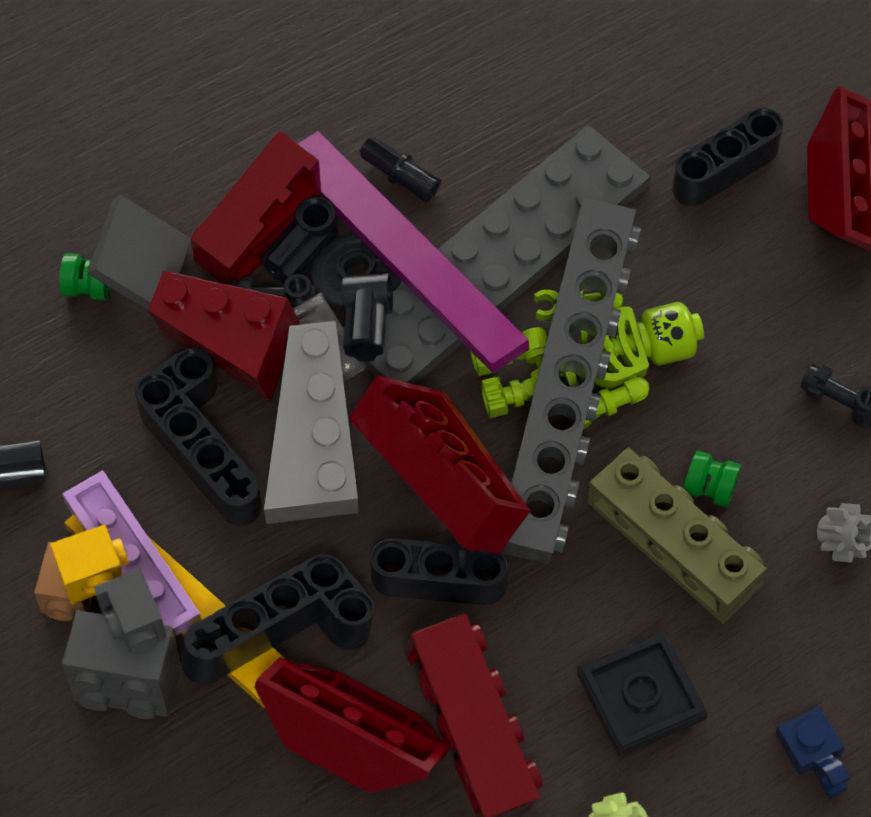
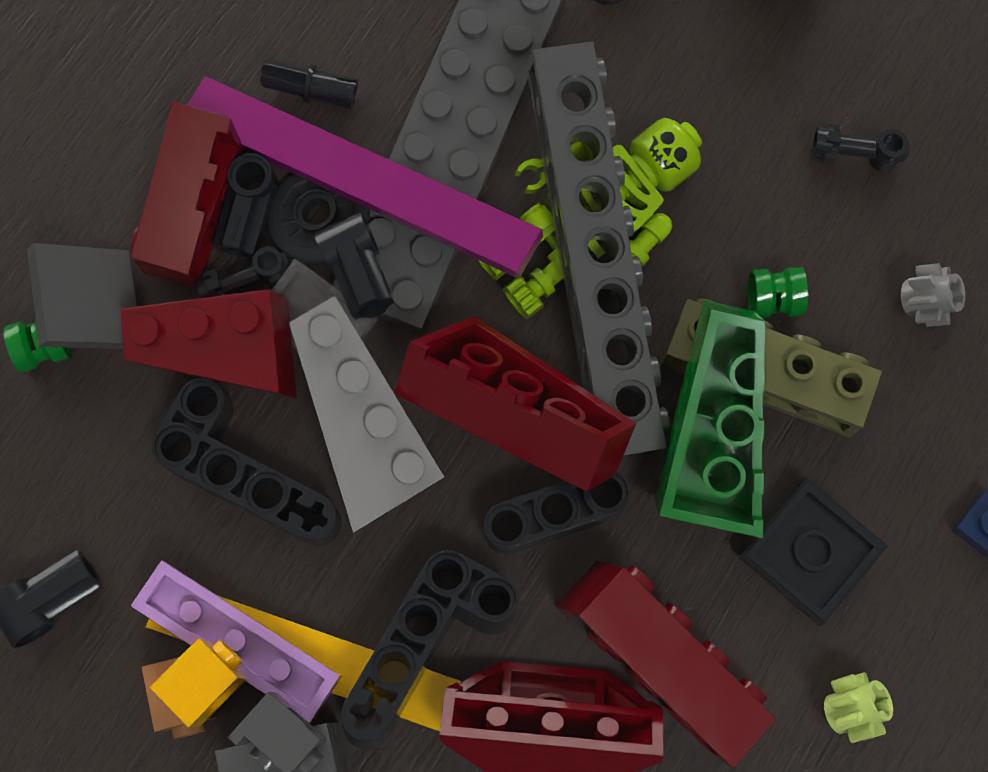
camera: 25 degrees left, 15 degrees up
(599, 552) = (718, 427): none -> green wedge

